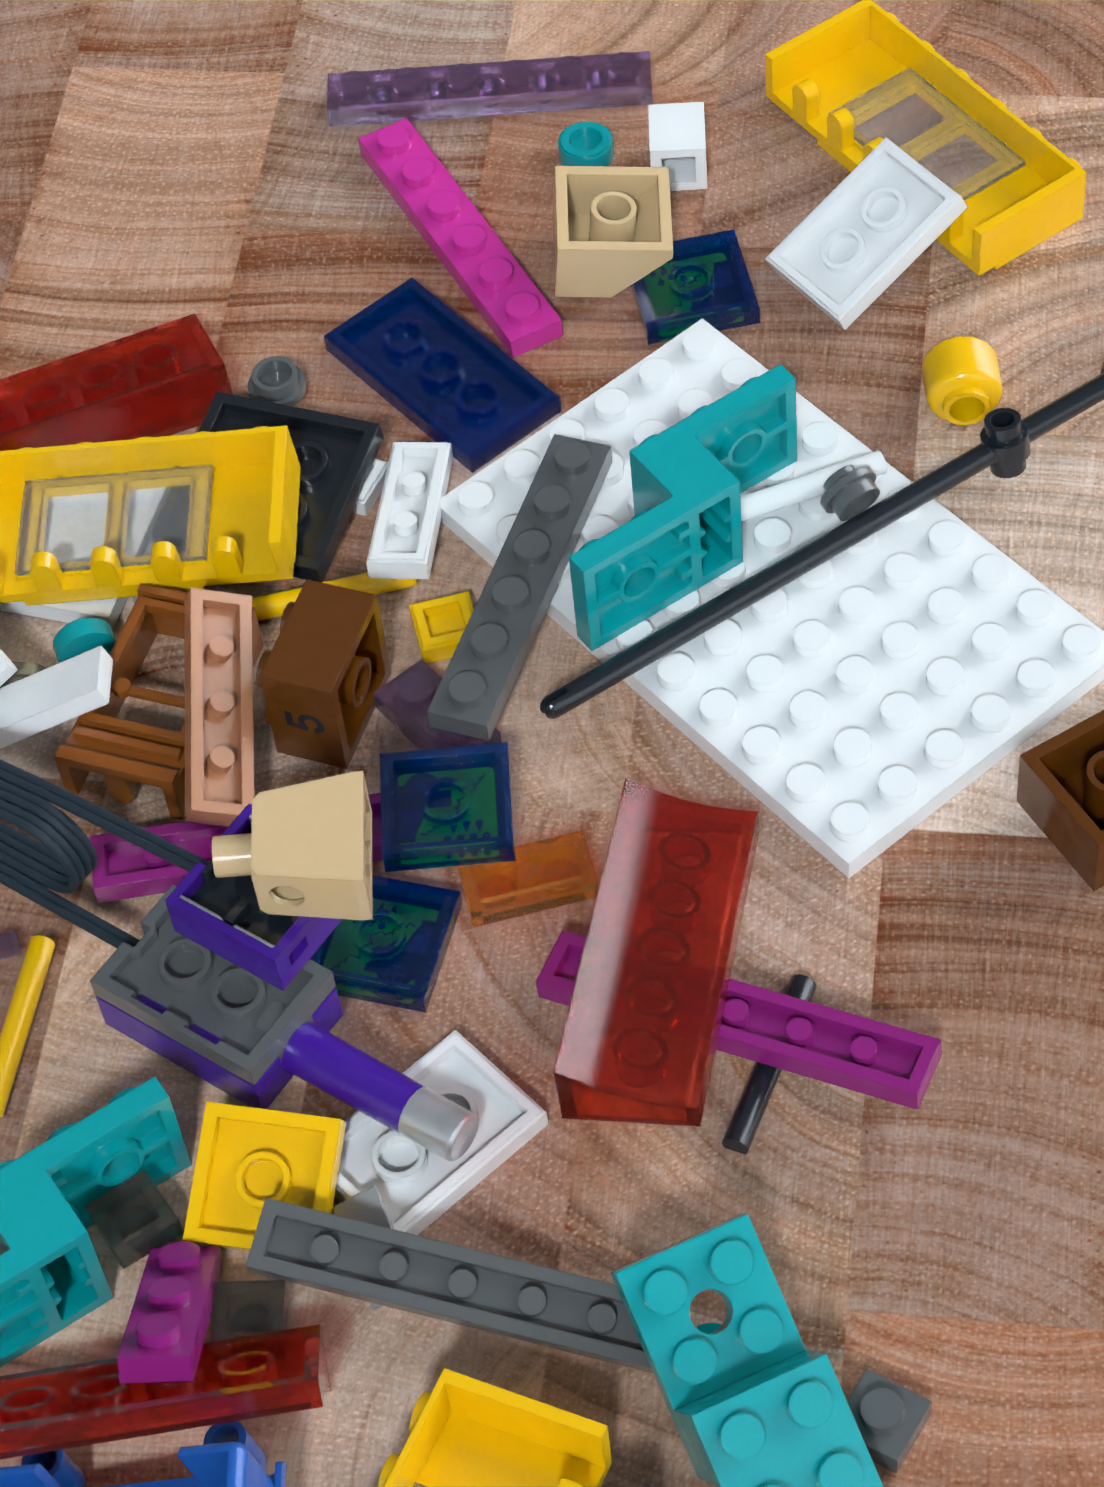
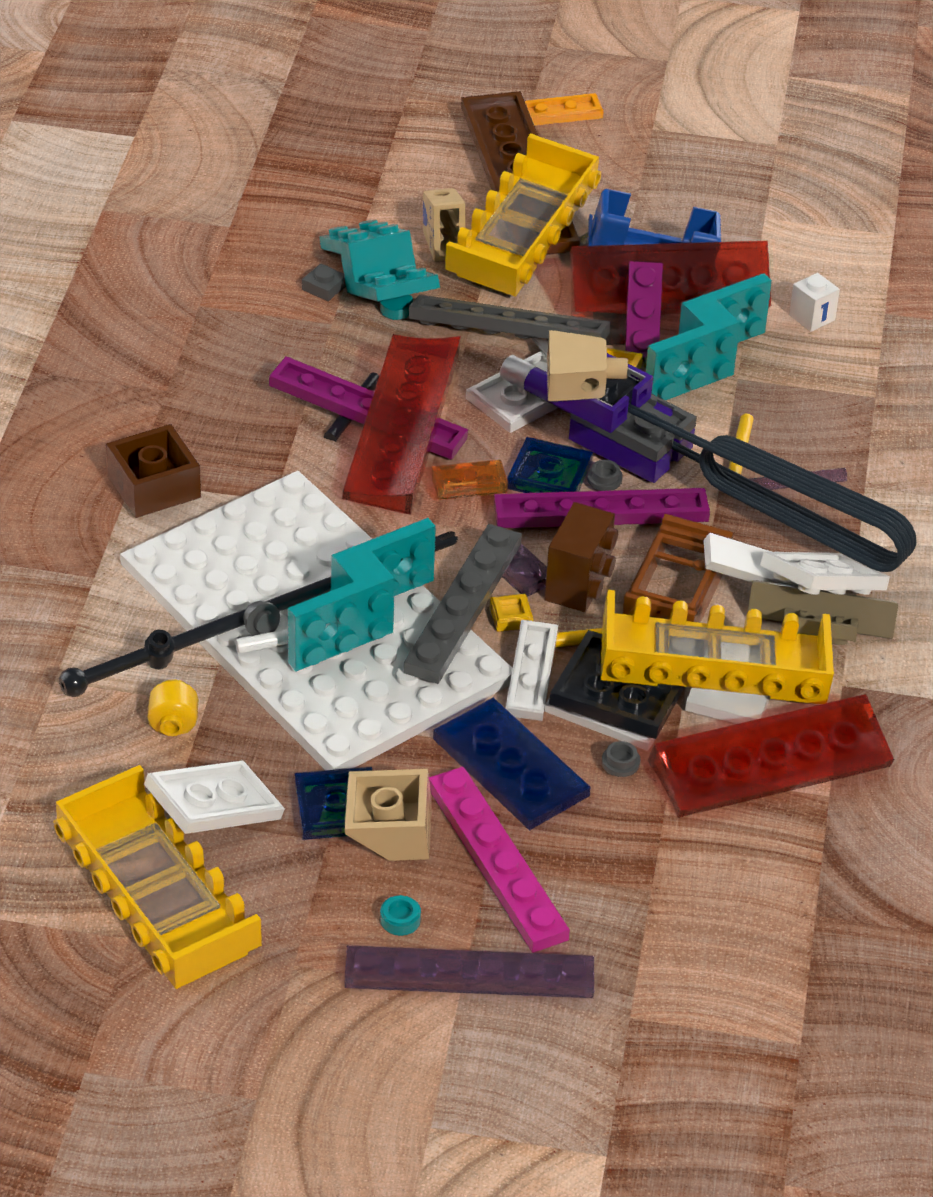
camera: 175 degrees right, 10 degrees down
(82, 636) = (733, 605): teal tile -> none
(218, 706) = (640, 537): nougat plate -> none
(446, 807) = (512, 498): clear blue tile -> none
(679, 143) = (333, 889): white brick -> none

